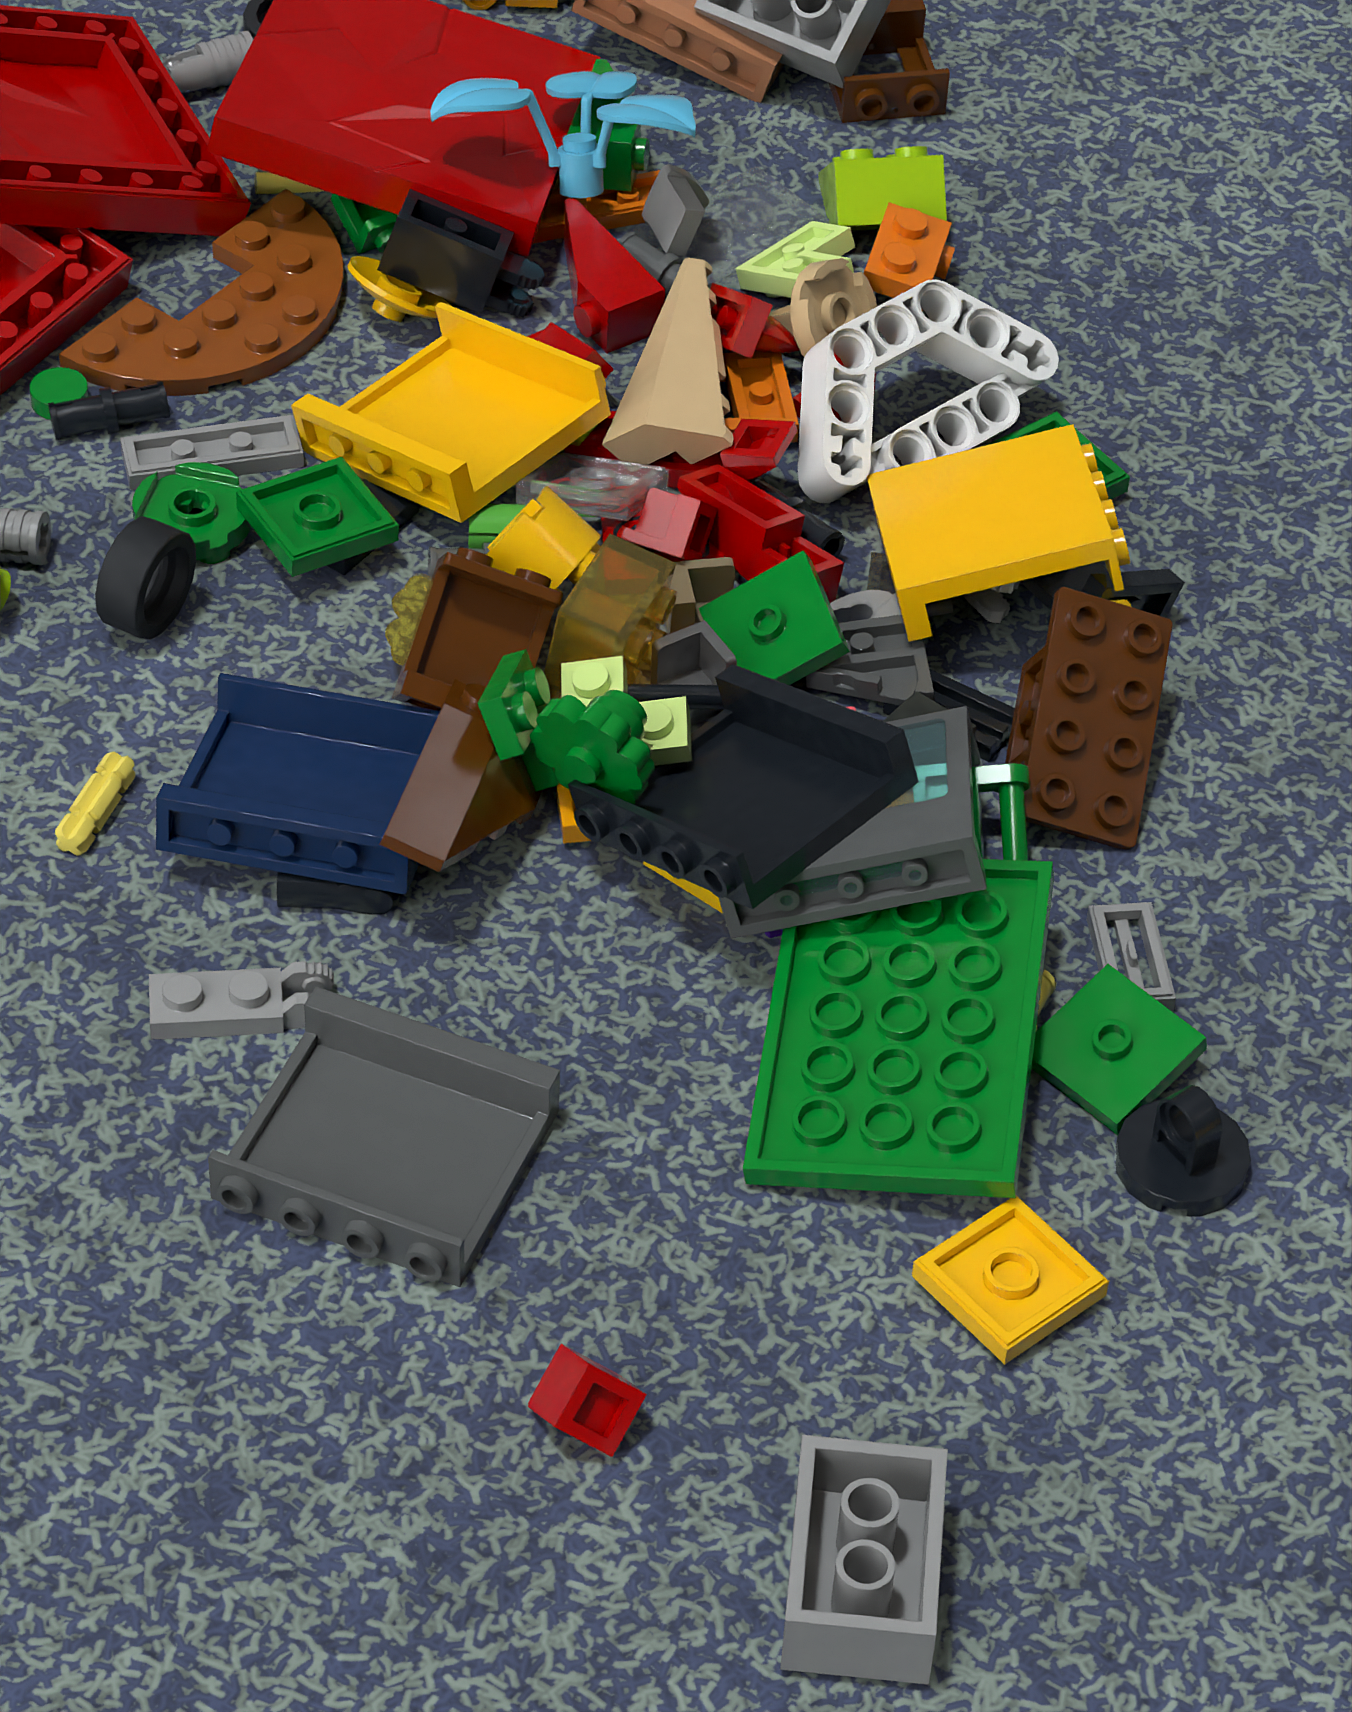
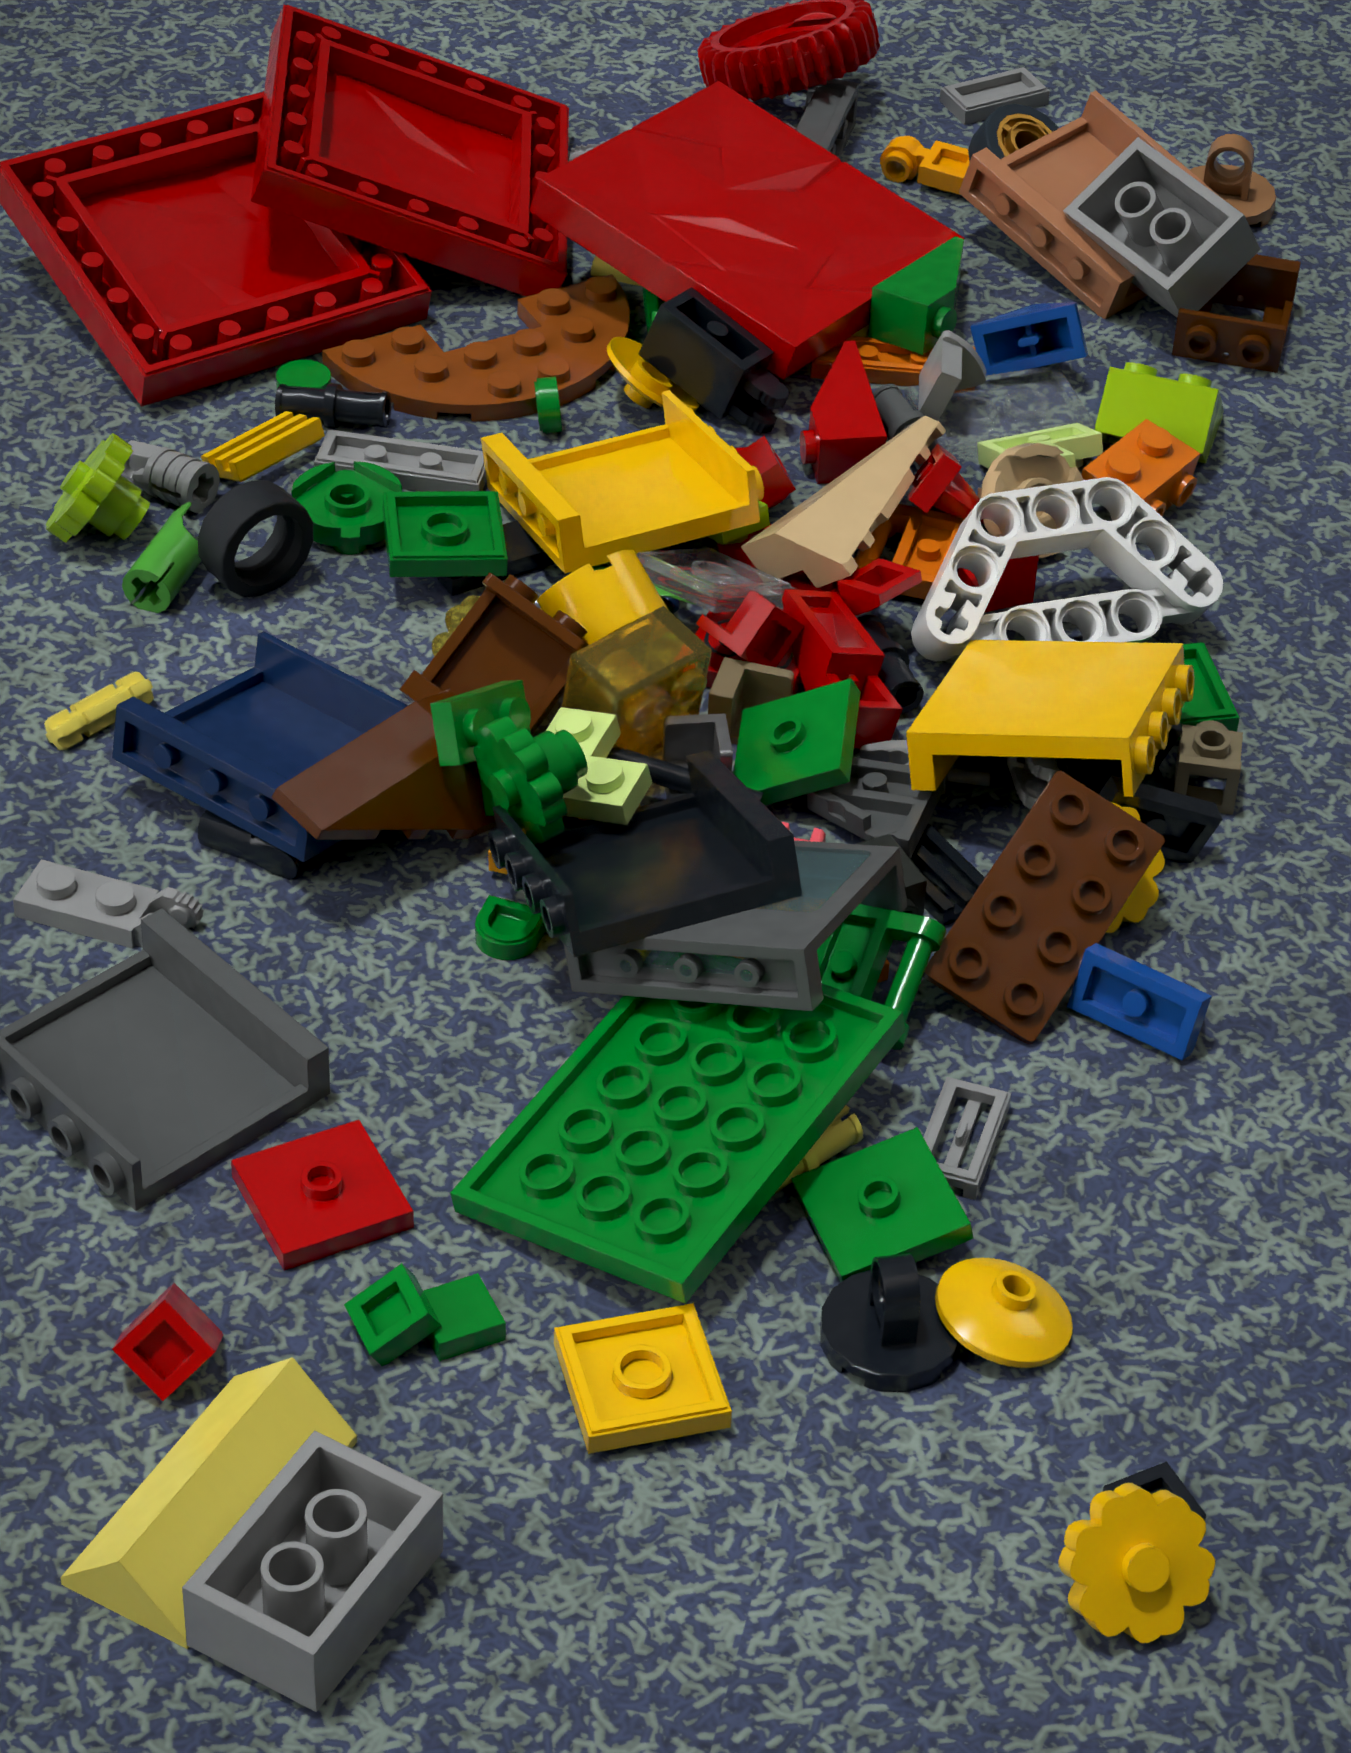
camera: 25 degrees right, 5 degrees down
(61, 627) = (163, 565): none -> bright green piece
(70, 473) = (264, 446): none -> yellow tile
(318, 348) = (548, 405): none -> green tile
(579, 157) = (873, 301): medium azure plant -> none
(617, 895) = (507, 929): none -> green tile
(621, 1210) = (322, 1194): none -> red plate
(716, 1531) = (201, 1494): none -> light yellow slope
(728, 143) = (1030, 337): none -> blue slope
(764, 1301) = (392, 1315): none -> green tile
(815, 1281) = (466, 1317): none -> green tile
(1143, 526) = (1209, 752): none -> dark tan brick
(1209, 779) = (1139, 1001): none -> blue tile
(1268, 1107) = (1003, 1312): none -> yellow dish

